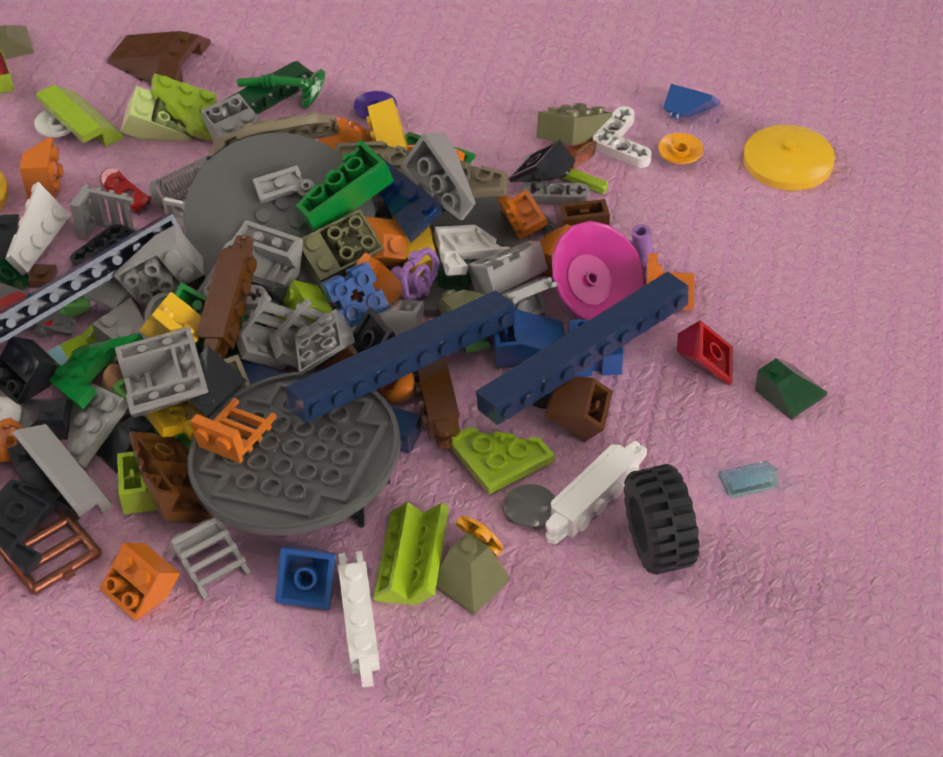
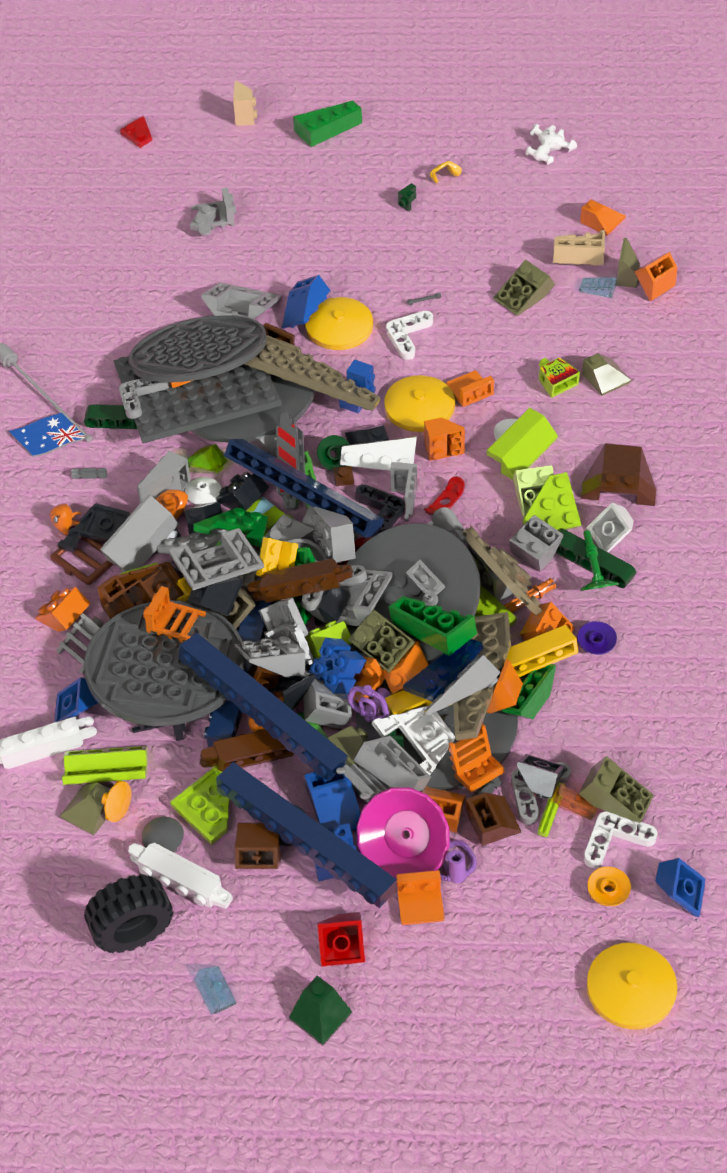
camera: 80 degrees right, 5 degrees up
(234, 64) = (611, 526): none -> white slope

